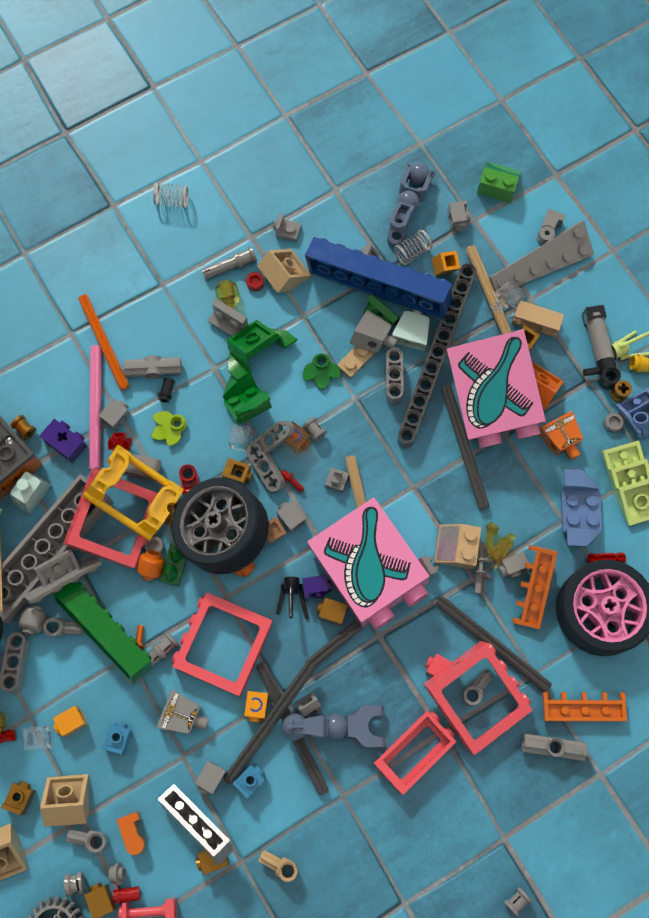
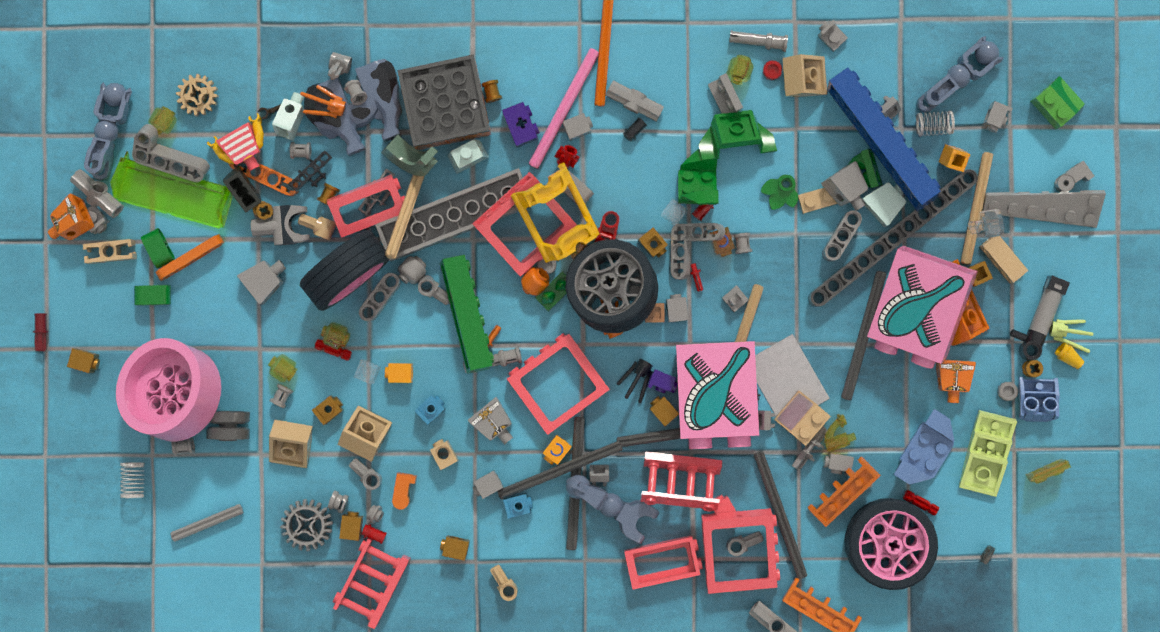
camera: 35 degrees right, 15 degrees up
(59, 572) = (456, 247): light grey bracket -> none
(162, 774) = (451, 459): none -> tan brick
(166, 428) = (614, 165): lime plate -> none
(196, 825) = (457, 515): light grey brick -> none
(263, 421) = (701, 211): none -> red pin
(386, 646) = (691, 466): none -> coral fence
(419, 516) = (784, 371): none -> flat silver sticker

